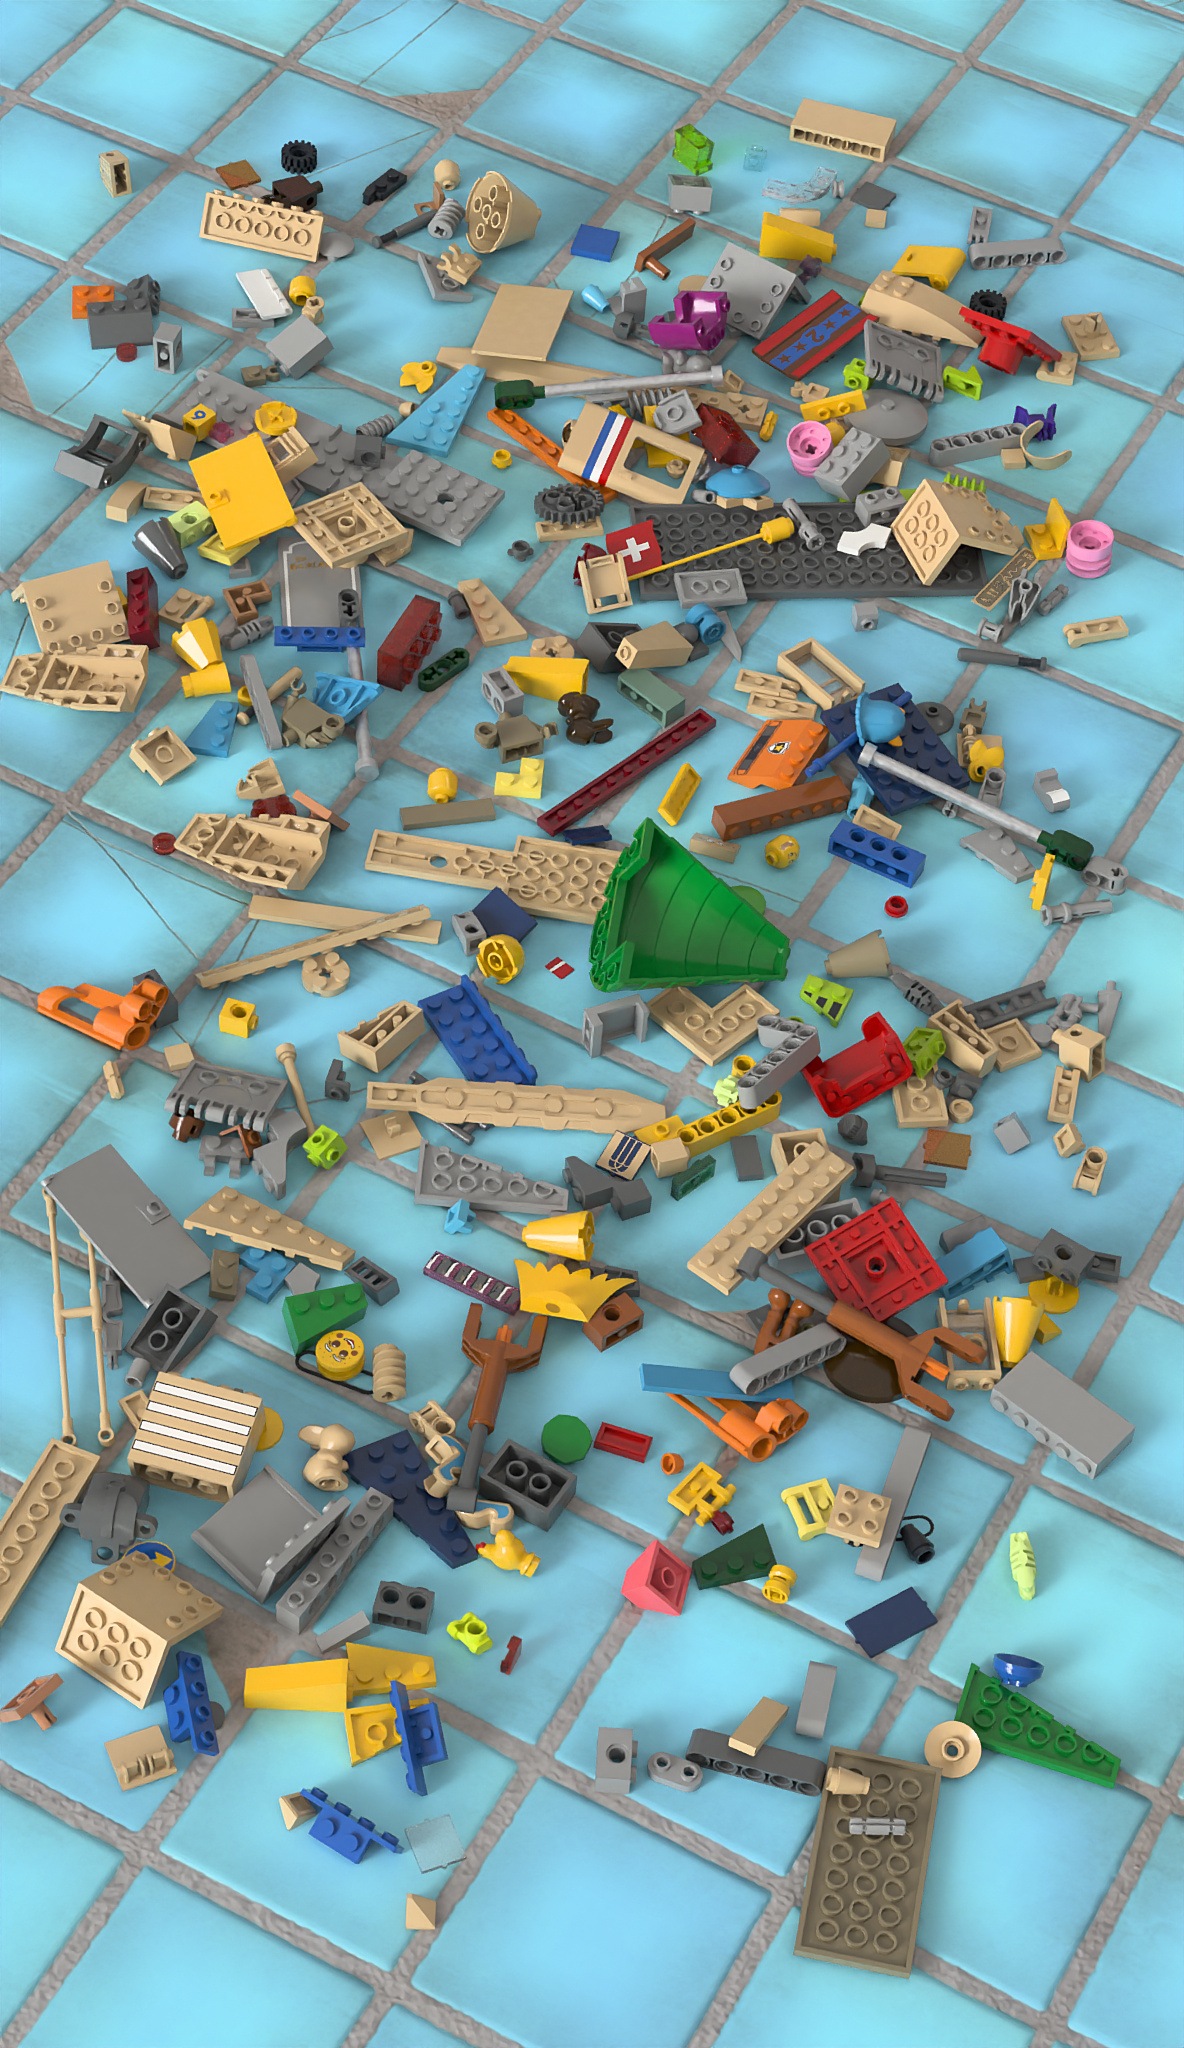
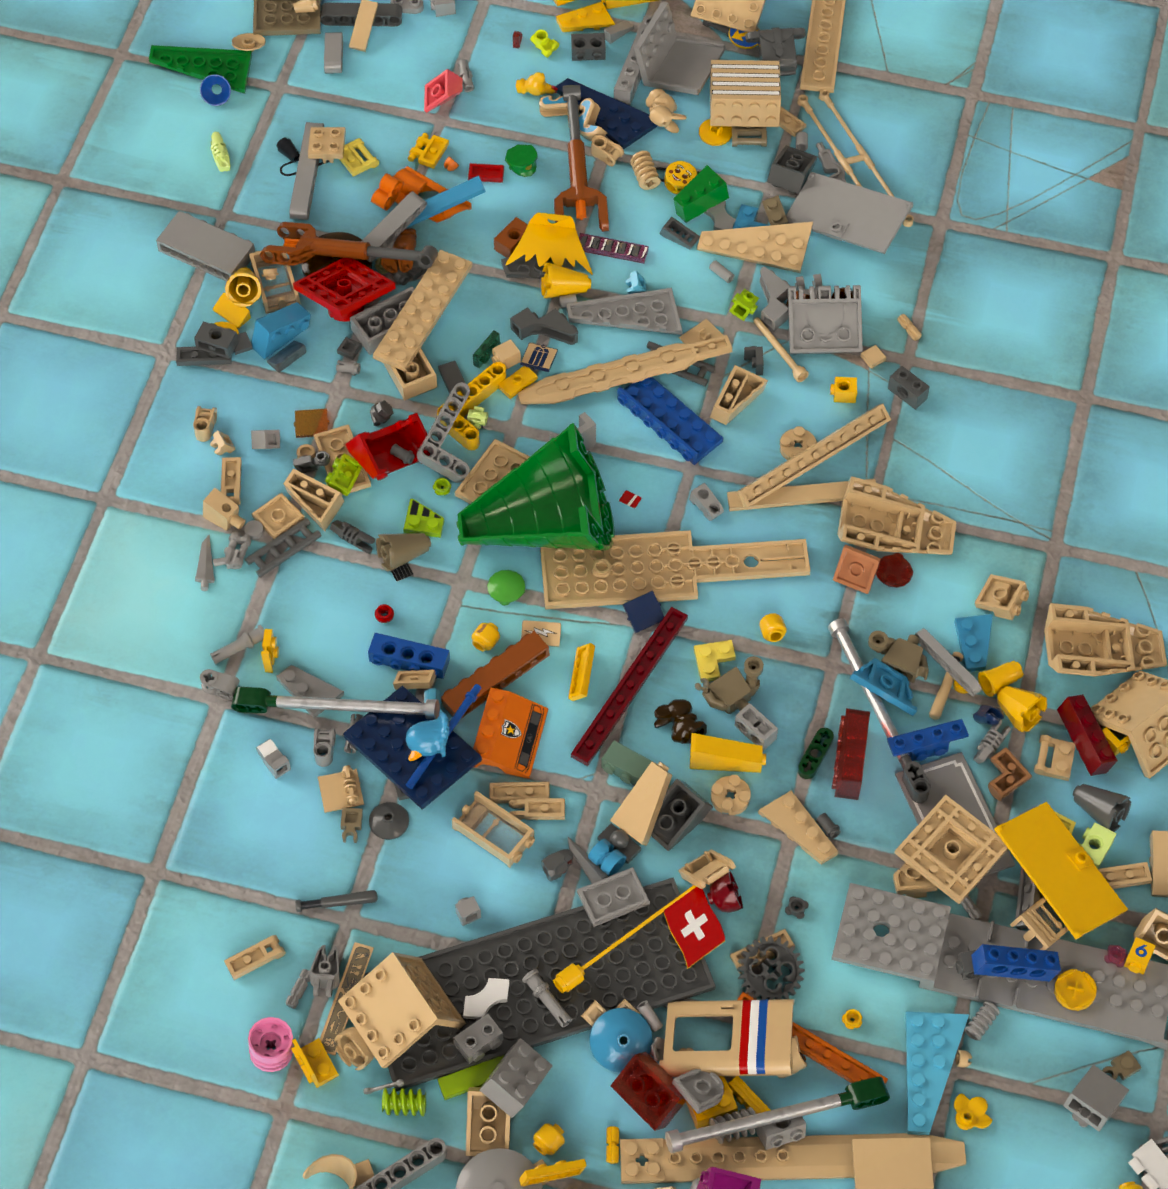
camera: 170 degrees right, 10 degrees up
(120, 1022) = (925, 358): orange panel -> none
(164, 843) = (965, 526): clear red tile -> none
(239, 642) = (988, 715): none -> dark blue piece
(261, 782) = (916, 599): tan brick -> none
(313, 309) = (1108, 1160): tan connector -> none
(333, 426) = (1016, 962): none -> blue brick
(334, 1212) = (721, 271): none -> light grey axle
(447, 814) = (758, 609): dark tan tile -> none
(501, 957) = (672, 481): yellow cylinder -> none
(502, 915) = (684, 518): dark blue piece -> none
(529, 1483) = (536, 122): dark grey brick -> none
(612, 1608) = (466, 74): none -> light grey pin
(722, 1522) = (411, 134): dark red plate -> none
(736, 1561) = (396, 120): dark green wing -> none
(760, 634) = (557, 864): none -> dark grey rock
(779, 1585) = (368, 108): yellow wheel -> none
(809, 446) = (560, 1096): bright pink wheel -> none
(835, 1059) = (403, 454): none -> dark grey pin
(868, 1171) = (366, 381): dark grey piece -> none
(891, 1622) = (296, 109): dark blue piece -> none
(983, 758) = (337, 765): yellow plate -> none
(990, 630) = (351, 928): light grey bush -> none

